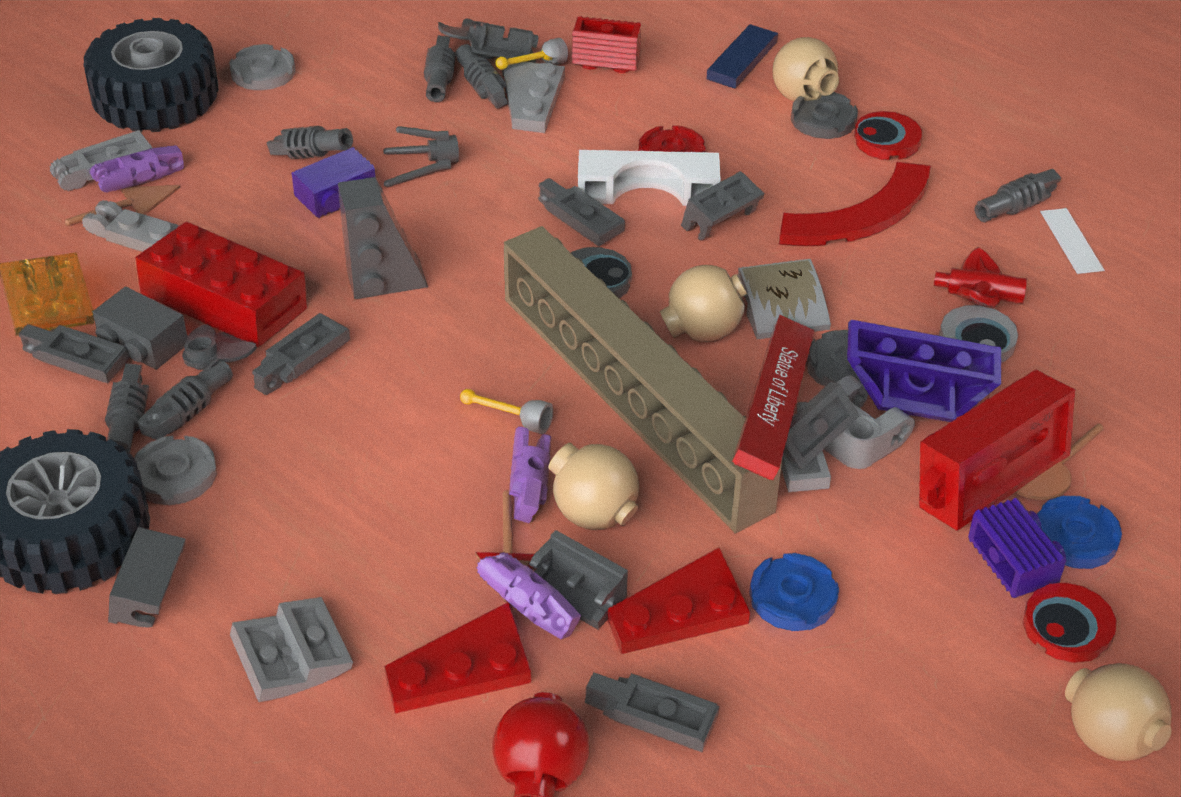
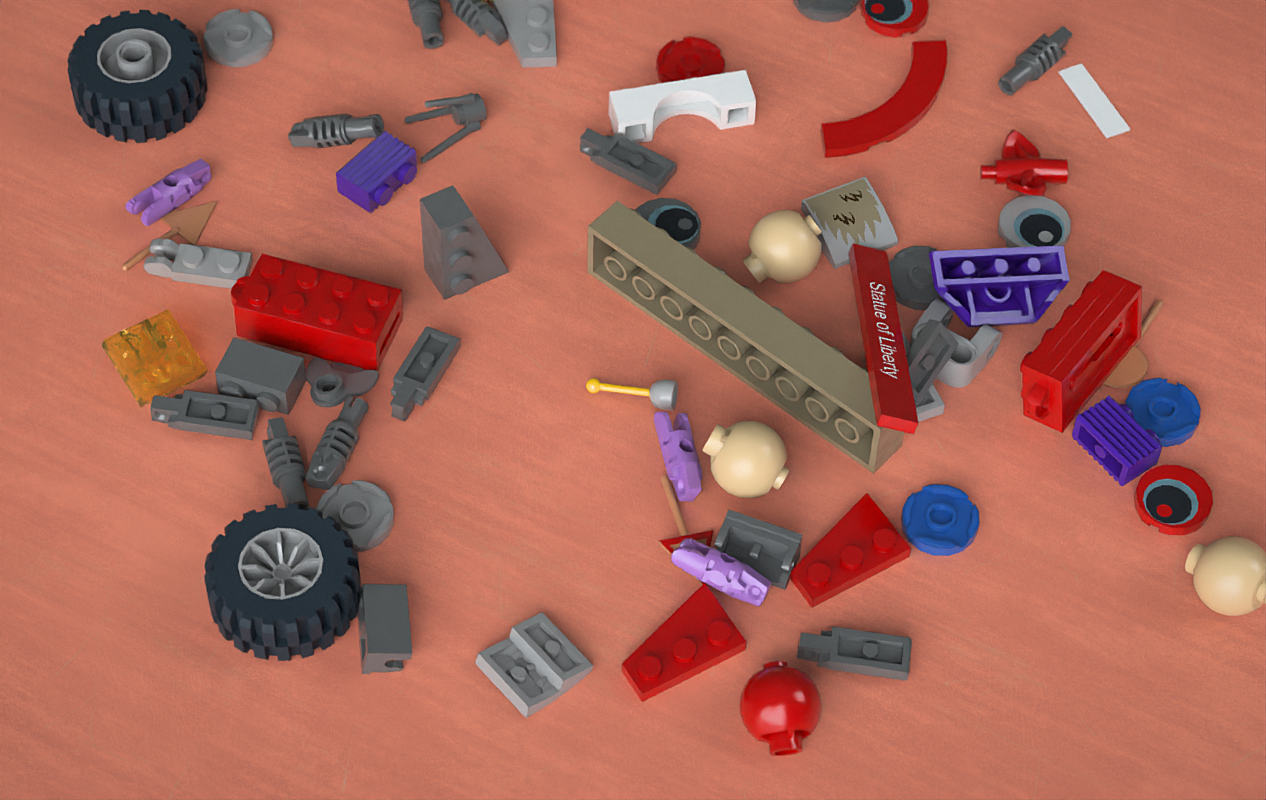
camera: 15 degrees left, 10 degrees up
(74, 168) = (124, 186): light grey hinge -> none
(721, 203) = (763, 128): dark grey hinge -> none

